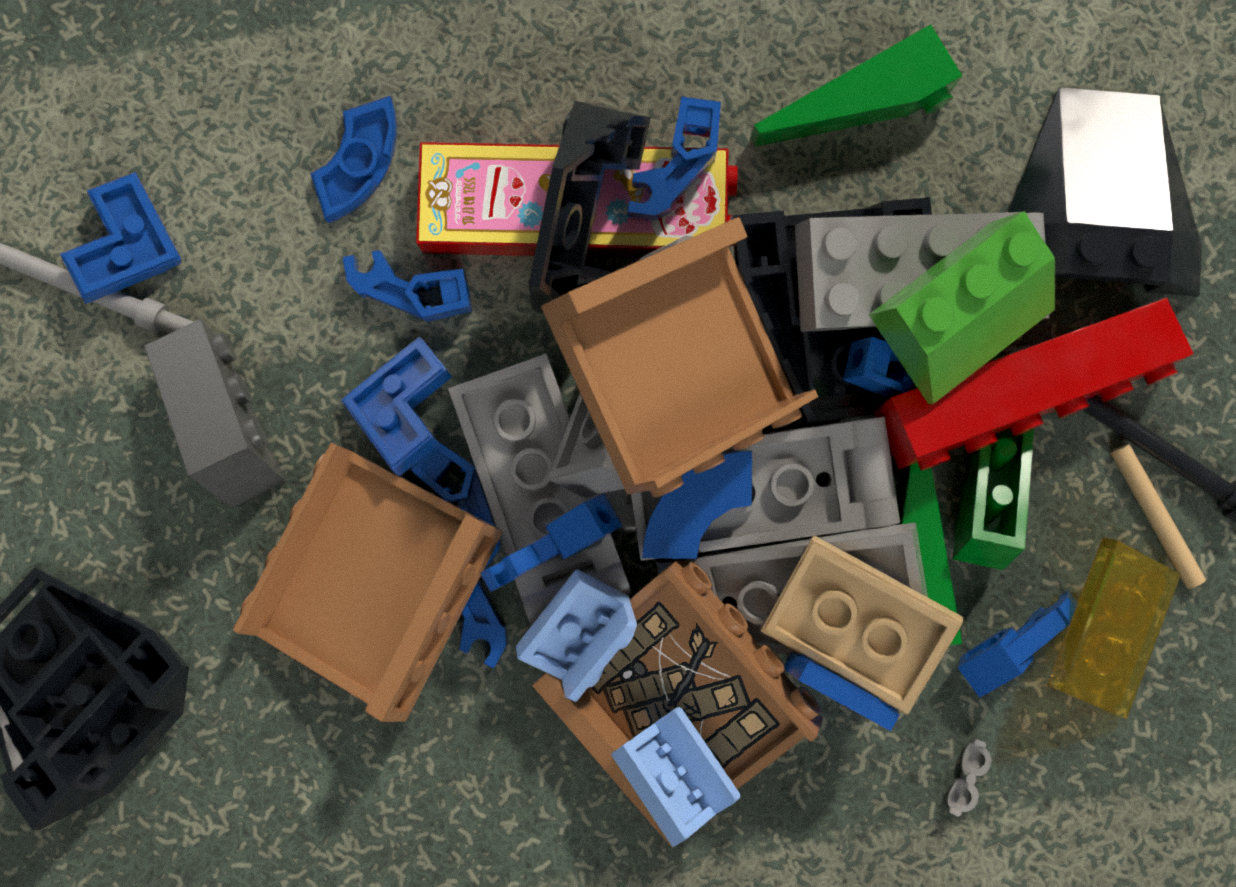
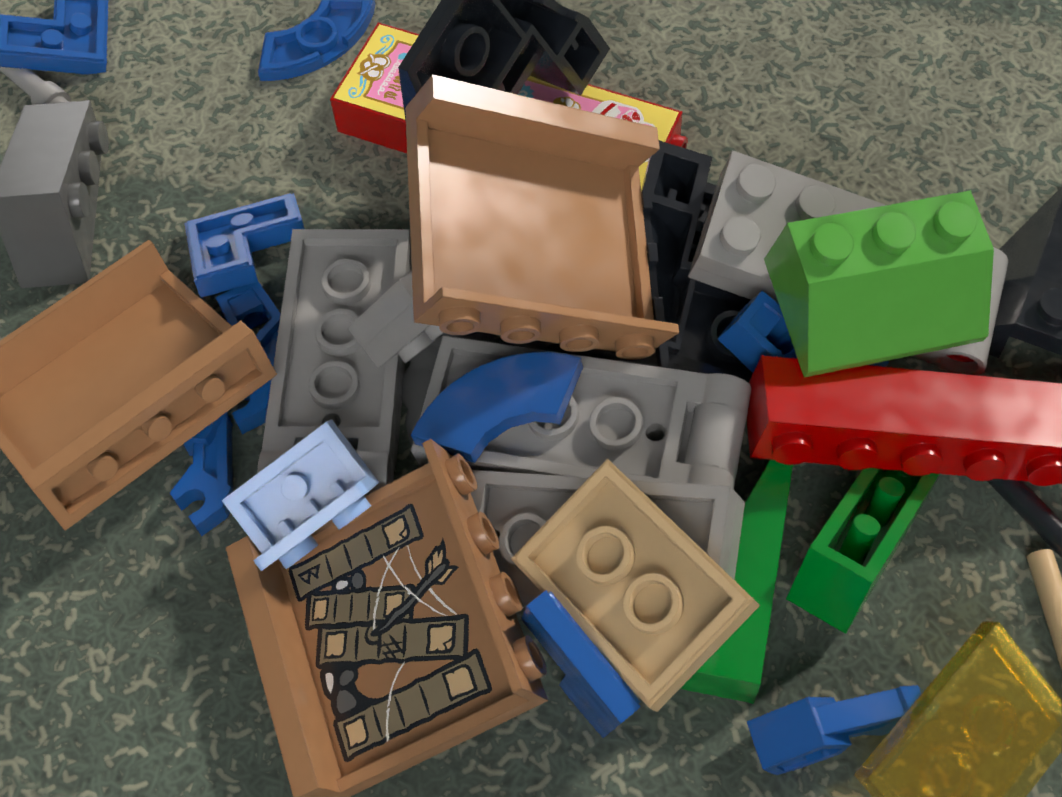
camera: 20 degrees right, 25 degrees down
(385, 287) = (299, 155): blue piece -> none
(565, 537) = (348, 389): blue piece -> none
(669, 183) = (645, 86): blue piece -> none
(676, 776) = (337, 703): light blue bracket -> none
(883, 88) = (860, 118): green slope -> none

